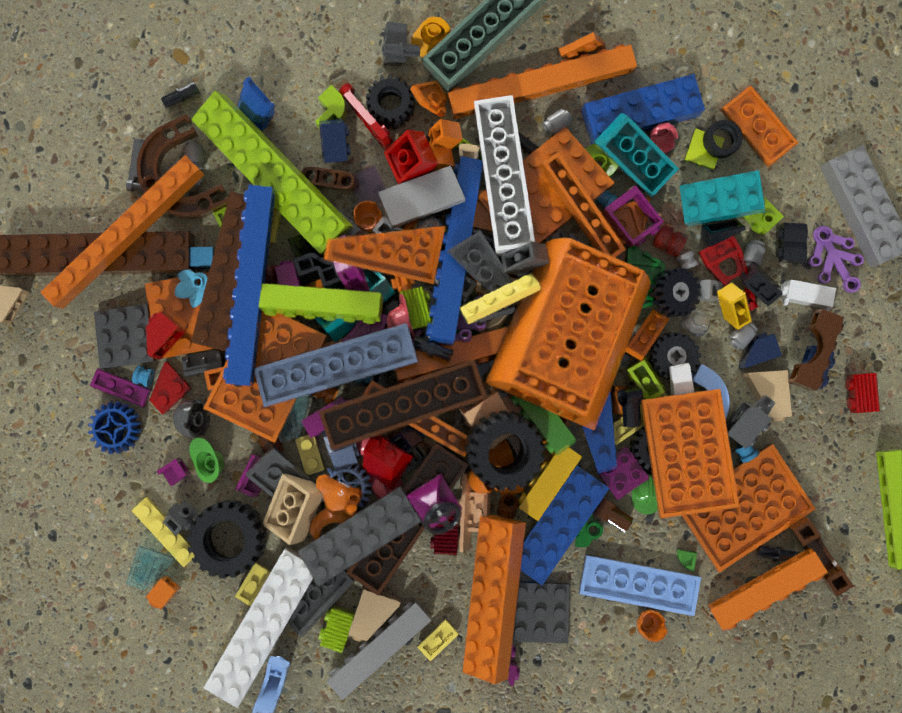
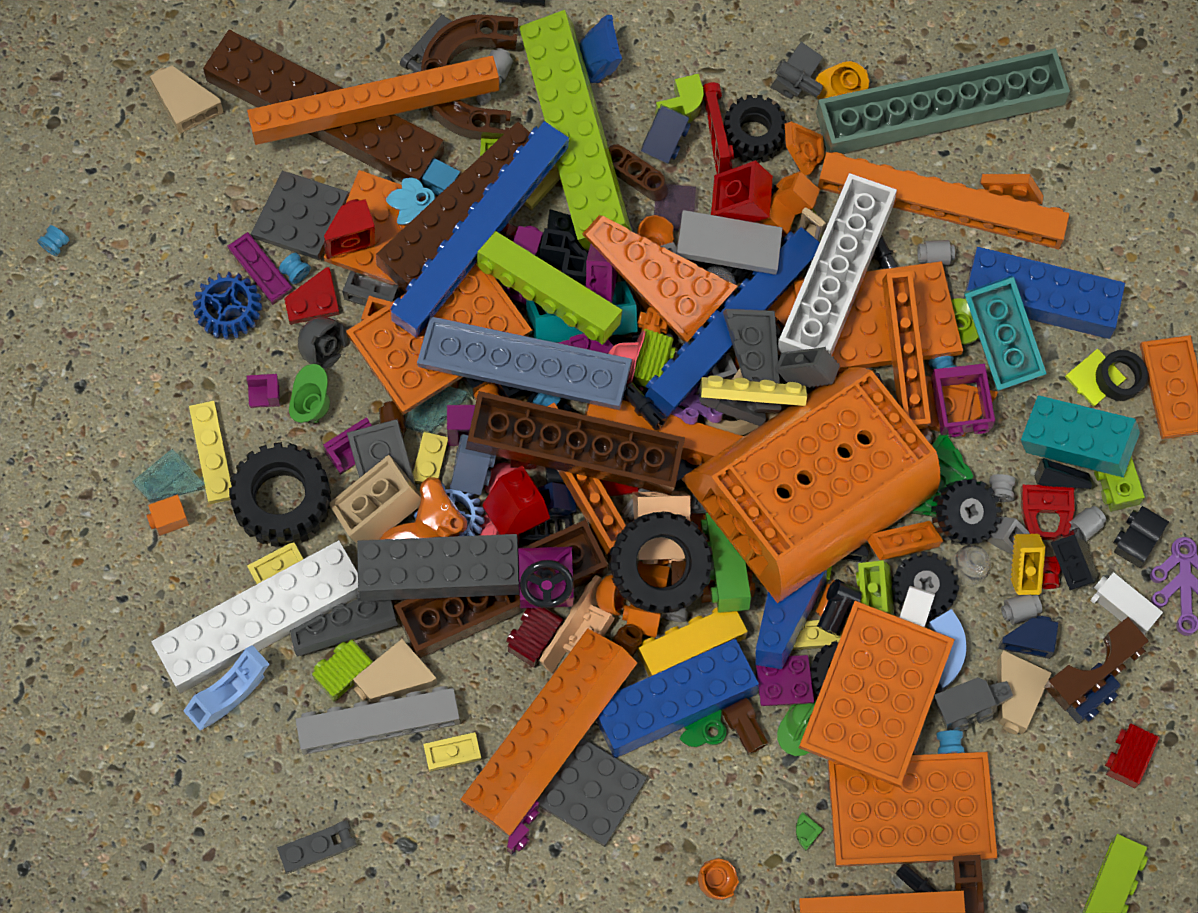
camera: 30 degrees right, 15 degrees down
(180, 517) = (239, 441): dark grey brick -> none
(639, 585) = (731, 826): light blue plate -> none
(664, 136) = (1051, 335): coral hair -> none
(671, 241) = (995, 455): clear red wheel -> none

